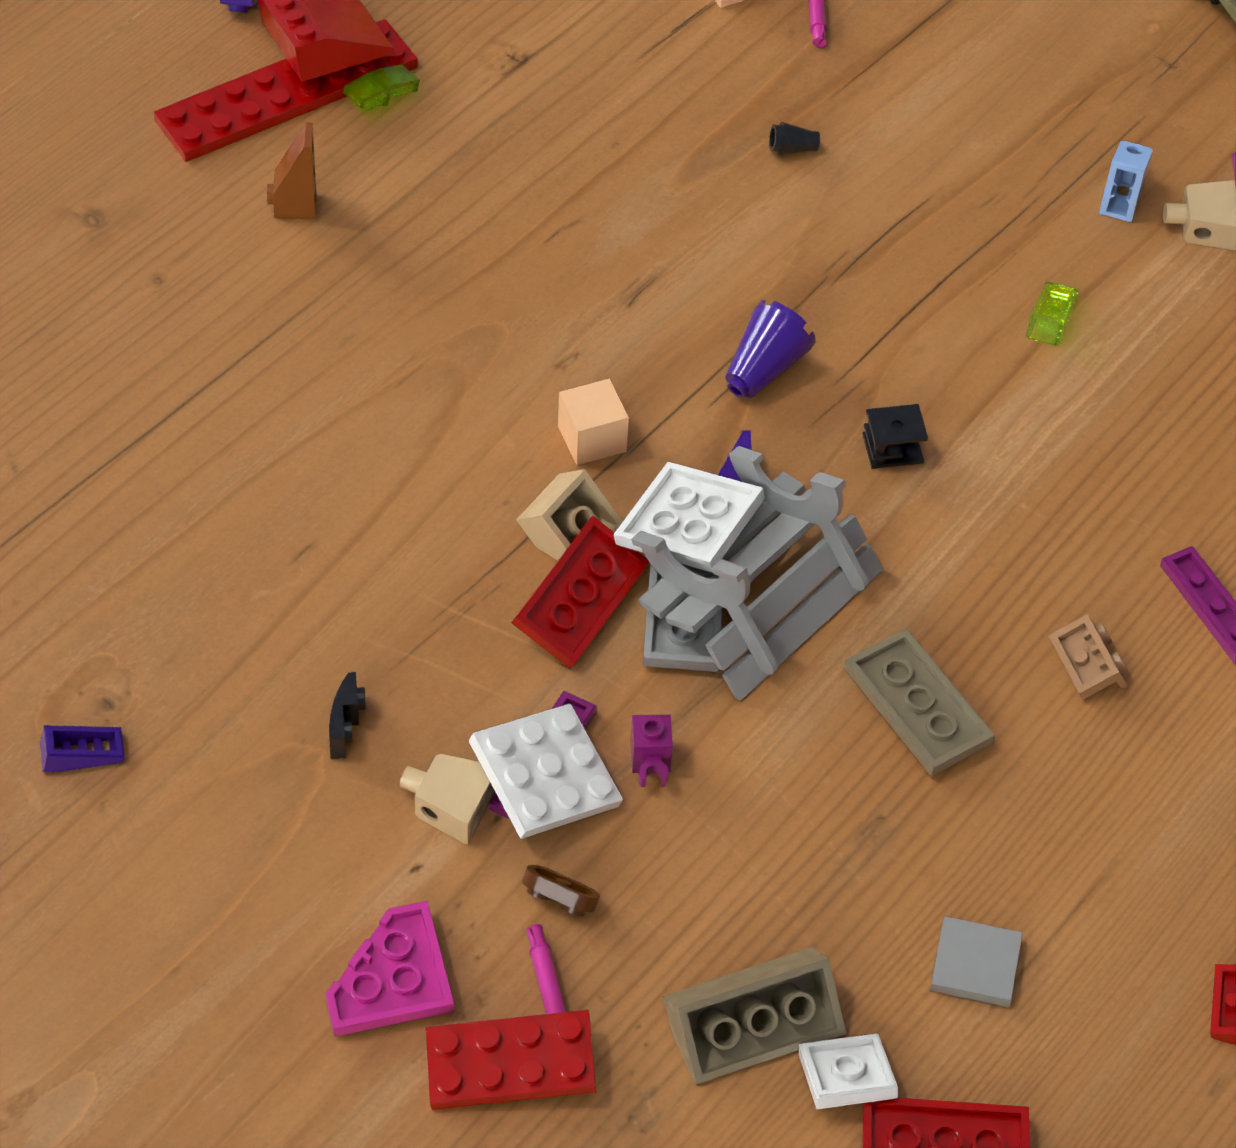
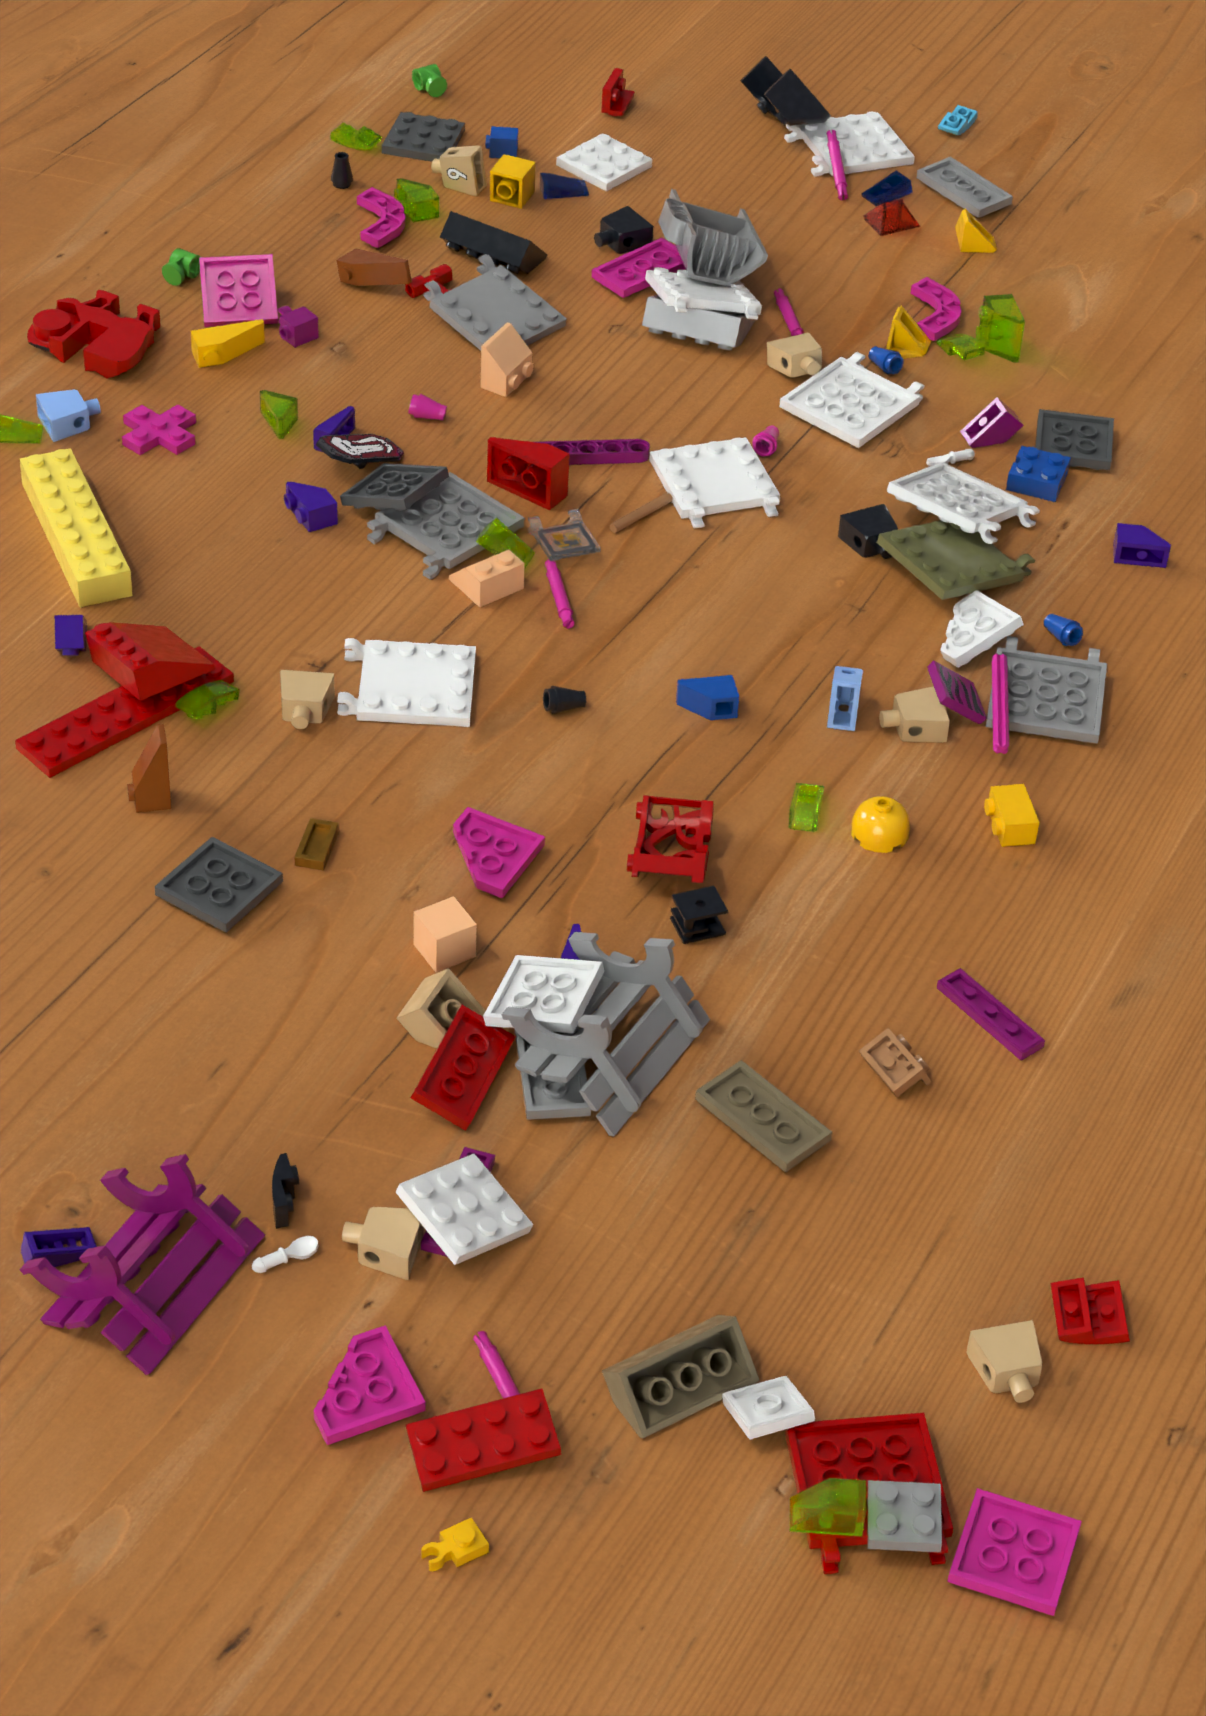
camera: 10 degrees left, 10 degrees down
(154, 764) = (139, 1238): none -> magenta piece
(348, 322) = (219, 884): none -> dark grey plate
(351, 789) = (300, 1249): none -> white piece
(471, 285) = (316, 844): none -> pearl gold tile
(494, 98) = (306, 696): none -> tan torso
(547, 884) = (482, 1298): reddish brown plate -> none
(621, 95) = (411, 683): none -> white plate
(651, 746) = (548, 1178): magenta brick -> none
(674, 321) = (495, 850): none -> dark pink plate
(767, 348) = (579, 859): dark purple cone -> none
(857, 364) = (684, 863): none -> red fence
(965, 158) = (709, 696): none -> blue slope
(976, 961) = (854, 1309): light grey tile -> none
(1135, 349) = (880, 824): none -> yellow cylinder
(1143, 1053) = (1007, 1358): none -> tan torso

